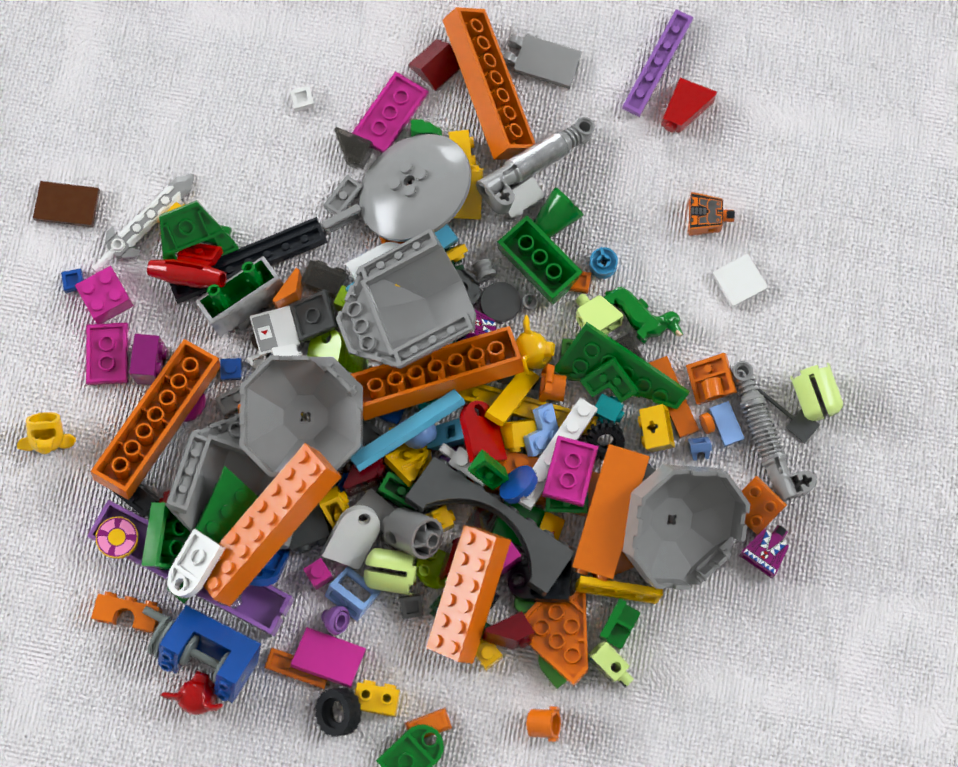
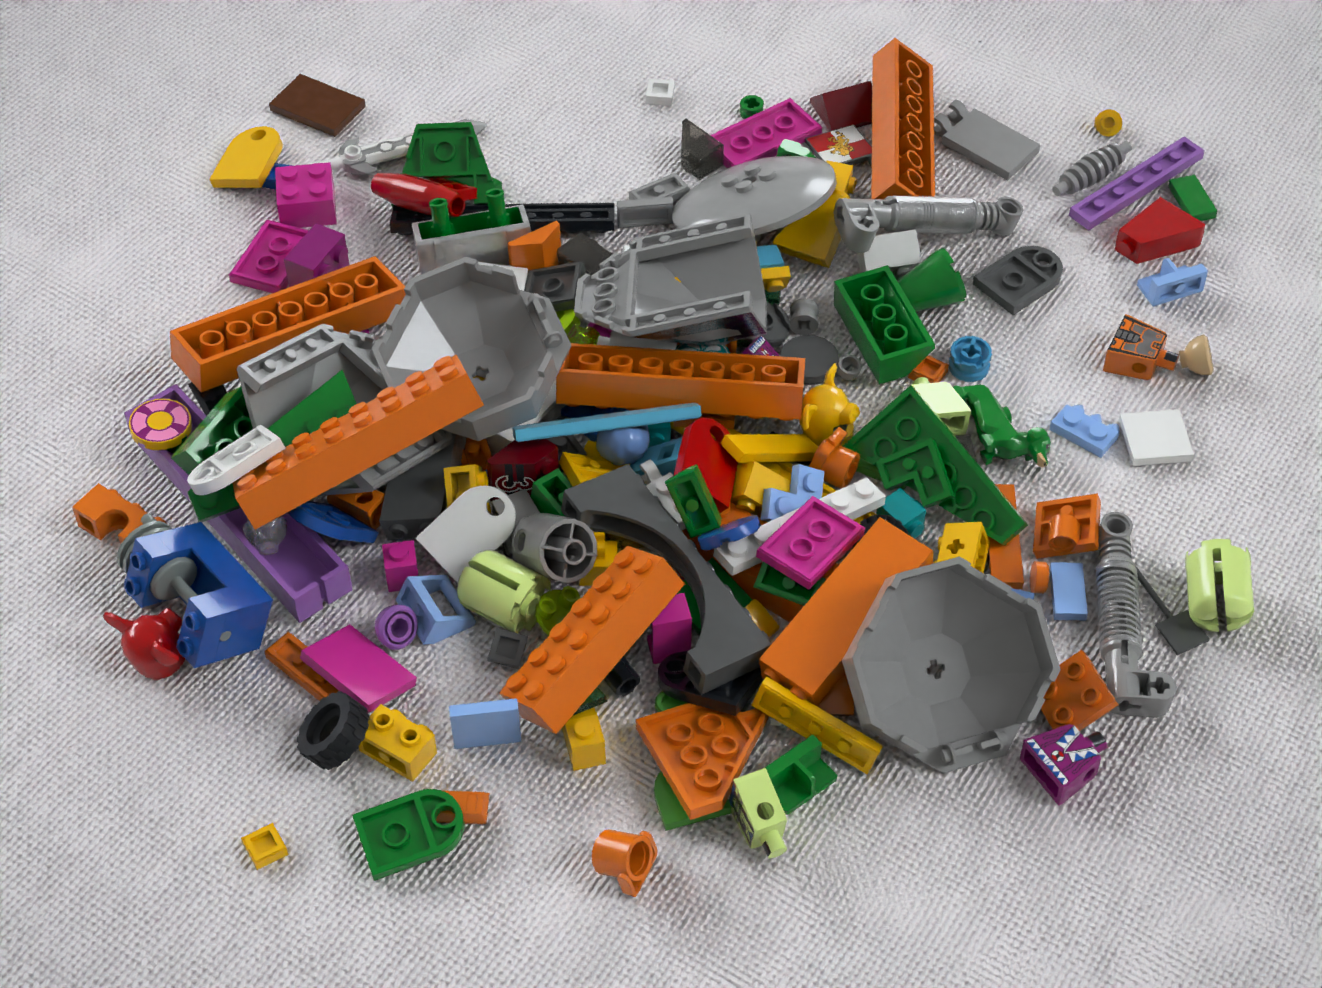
camera: 20 degrees right, 25 degrees down
(45, 277) = (248, 159): none -> yellow tile
(45, 434) = (144, 301): yellow piece -> none
(371, 83) = (750, 106): none -> green bush
(425, 670) = (485, 723): none -> light blue tile
(448, 105) = (841, 146): none -> flag
(510, 632) = (628, 711): dark red slope -> none
(609, 178) = (1019, 278): none -> dark grey tile
(620, 13) = (1108, 122): none -> yellow plate
(624, 61) = (1092, 168): none -> light grey piece
(694, 290) = (1085, 430): none -> light blue plate
(697, 61) = (1192, 197): none -> green tile
(708, 144) = (1173, 282): none -> light blue panel
(746, 205) = (1197, 356): none -> tan brick

